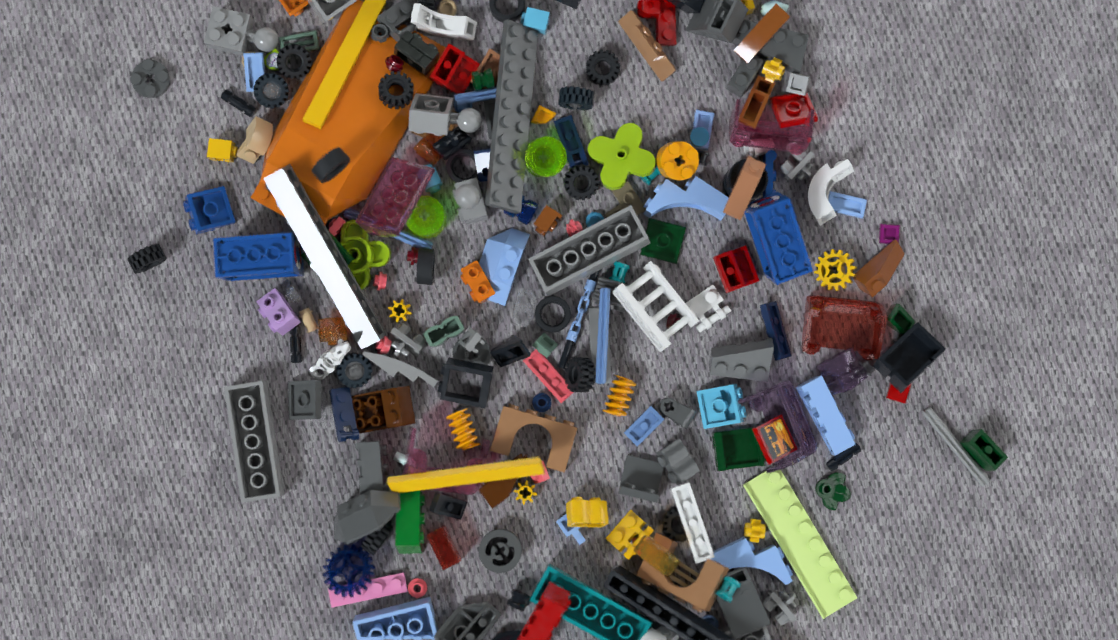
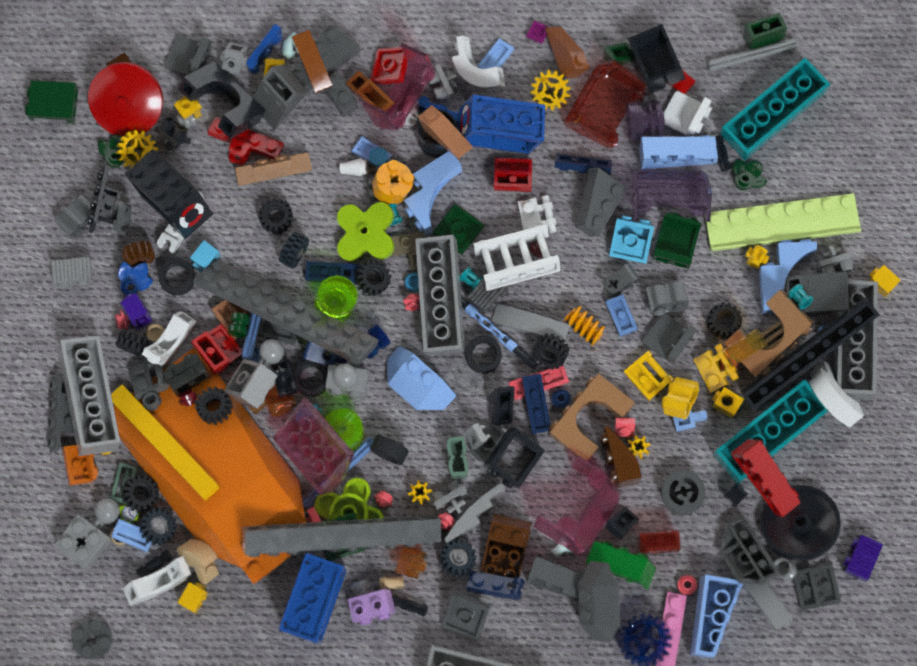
camera: 65 degrees left, 10 degrees down
(208, 210) = (244, 634): blue plate -> none
(220, 111) = (158, 582): none -> white arch
(330, 165) = (260, 487): black tyre -> none
(330, 359) = (438, 575): white animal -> none
(375, 540) = (628, 604): black tyre -> none
(412, 255) = (373, 458): dark red plate -> none
(462, 429) = (556, 480): light orange piece -> none
(466, 475) = (601, 488): yellow tile -> none
(478, 282) = (424, 409): orange bracket -> none
(526, 382) = (536, 403): none -> dark blue plate
(542, 115) = (295, 287): light orange tile -> none
(545, 345) = (509, 373): sand green plate -> none
(547, 220) = (394, 323): dark orange brick -> none
(591, 472) = (644, 380): none -> yellow plate
(602, 341) = (523, 314): medium blue axle -> none
(606, 565) = (735, 400): none -> yellow brick
(680, 120) = (355, 167): none -> white cone
(692, 522) = (727, 306): white plate -> none
(773, 70) = (347, 66): yellow gear -> none
(774, 439) = (681, 204): tile -> none
(798, 83) = (369, 52): light grey tile -> none
(867, 407) = (686, 114): none -> white bracket
(909, 490) = (775, 109): none -> teal brick

